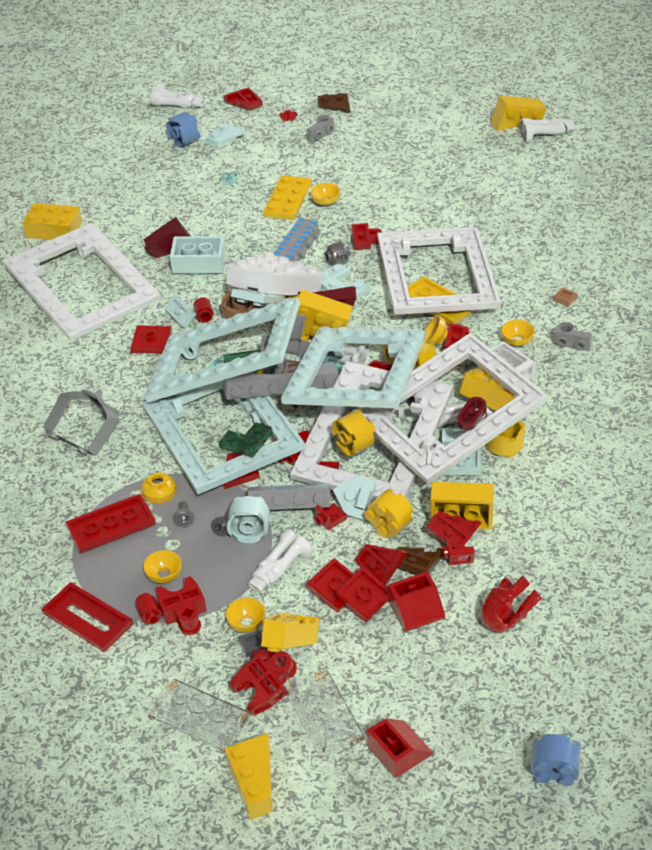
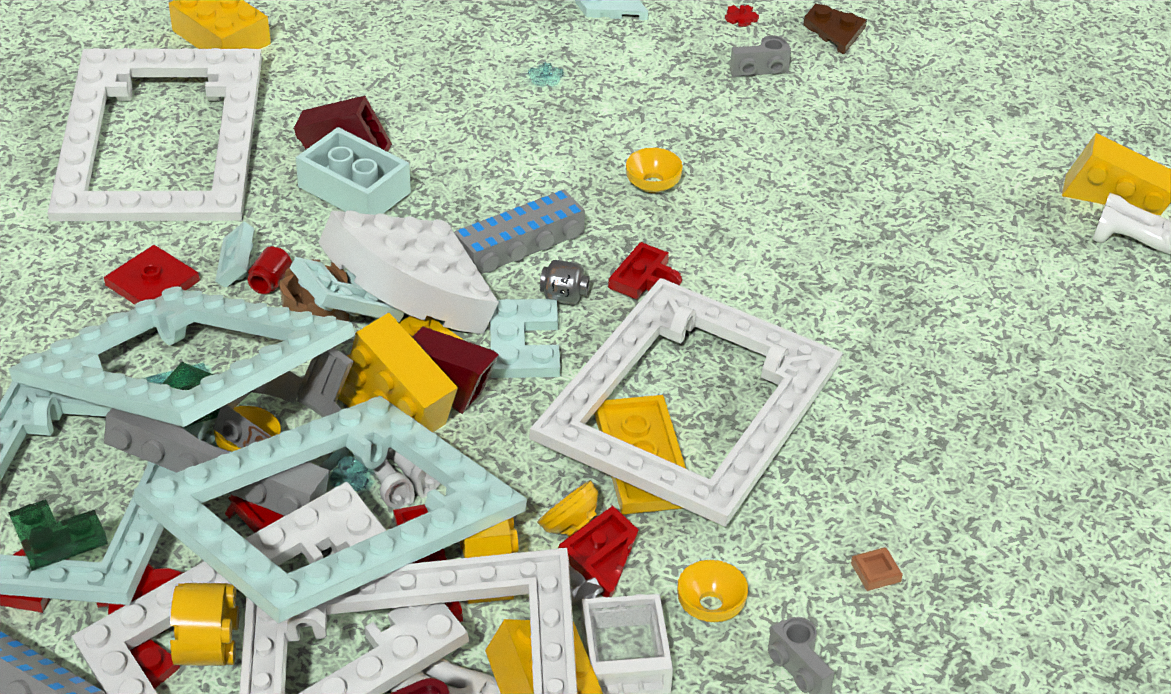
camera: 30 degrees right, 0 degrees up
(287, 197) = (596, 148): yellow plate -> none

